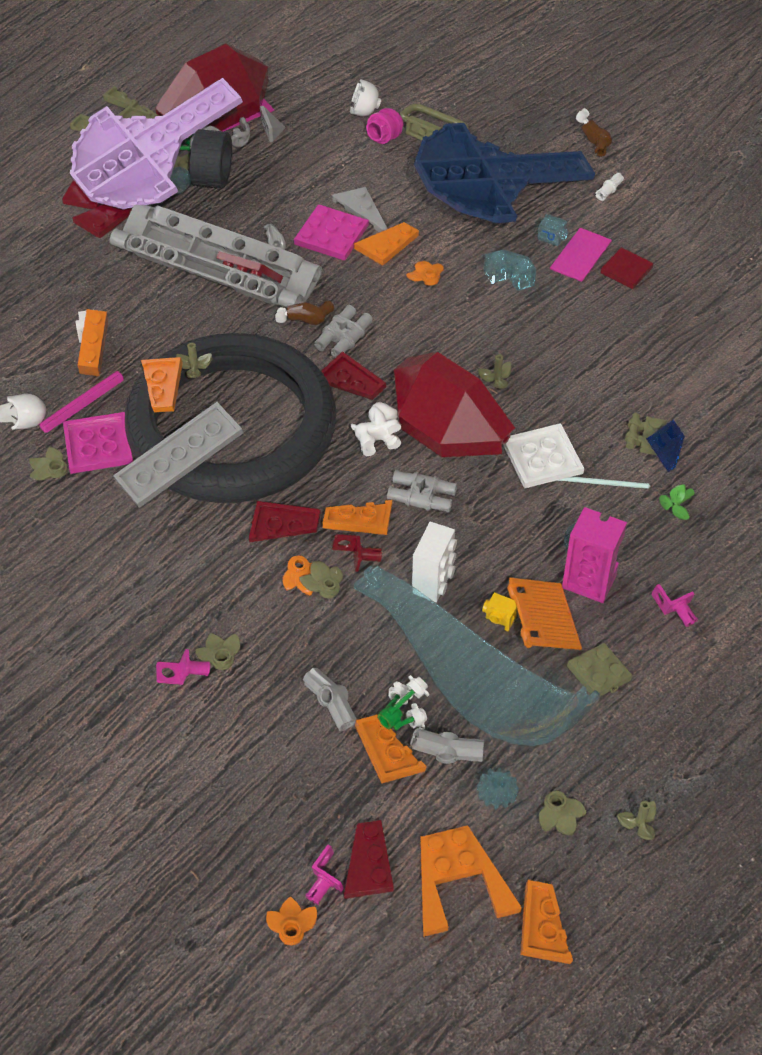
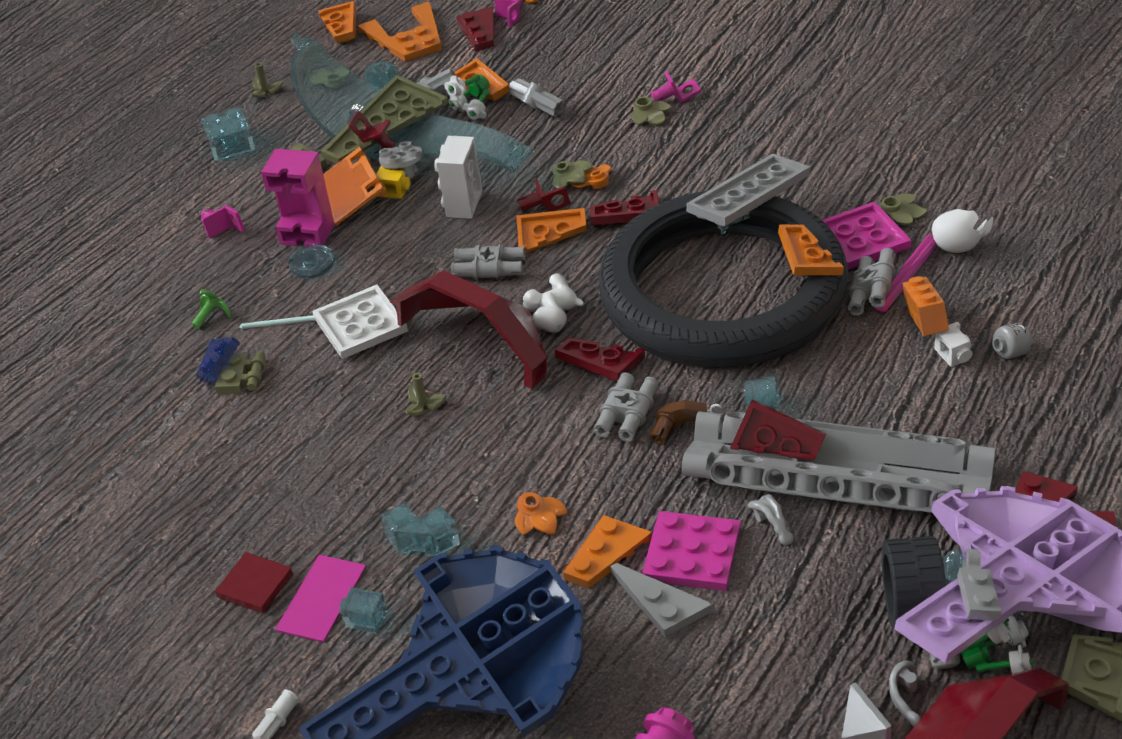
camera: 175 degrees right, 10 degrees down
(45, 318) = (1012, 341): none -> light grey head
(106, 386) = (871, 281): none -> light grey pin
(185, 114) = (978, 589): none -> light grey plate
(193, 363) = (778, 277): olive plant -> none
(241, 317) = (763, 391): none -> clear light blue piece
(488, 622) = (401, 158): none -> light grey plate
(499, 692) = (397, 101): none -> olive wing
(510, 653) = (372, 132): none -> dark red bracket
(678, 731) = (228, 133): none -> clear light blue brick

